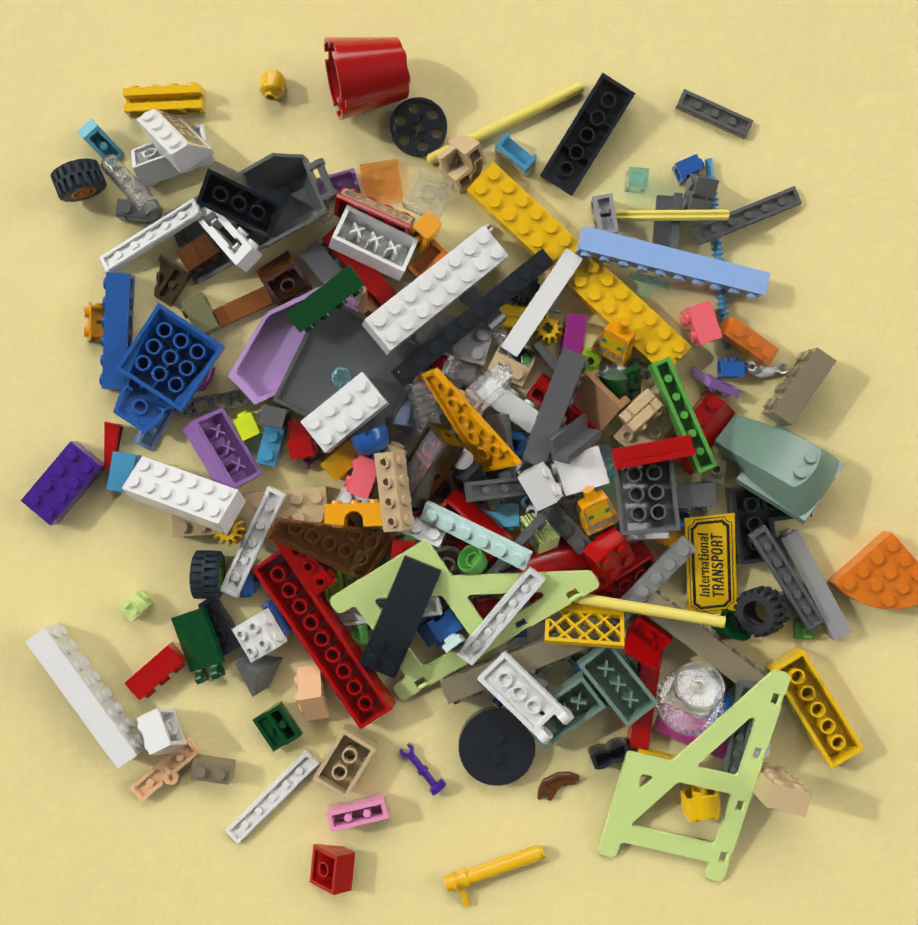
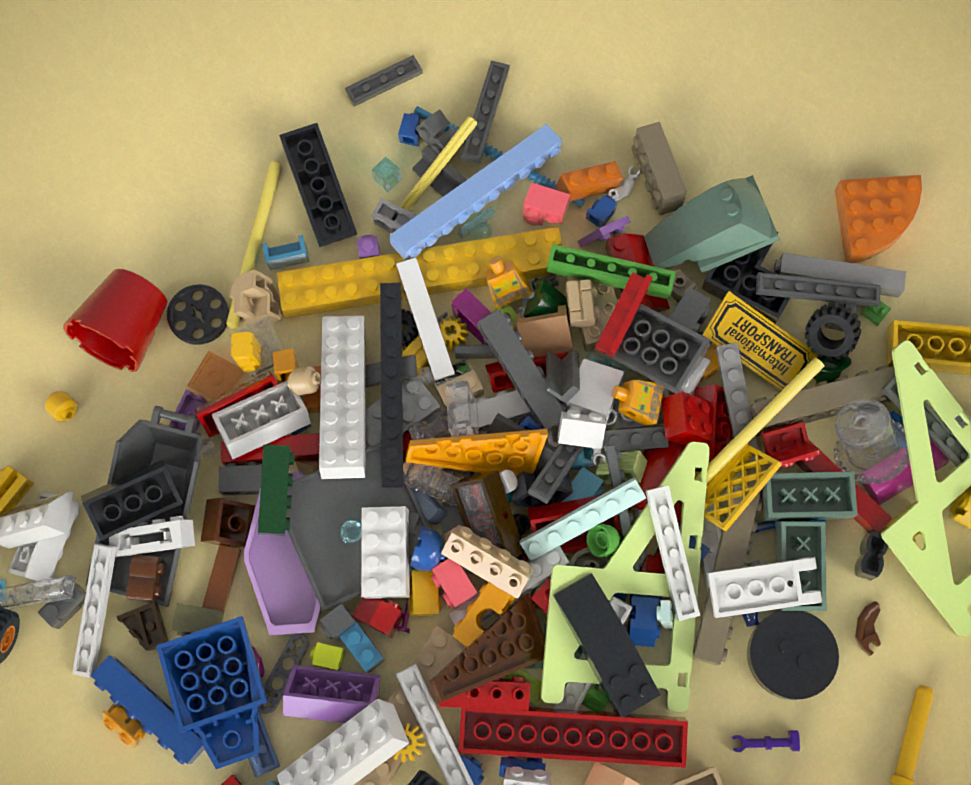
camera: 45 degrees left, 15 degrees down
(411, 192) = (246, 351): none -> yellow brick
(423, 253) = (304, 380): none -> tan head
(566, 214) = (368, 246): none -> medium lavender brick

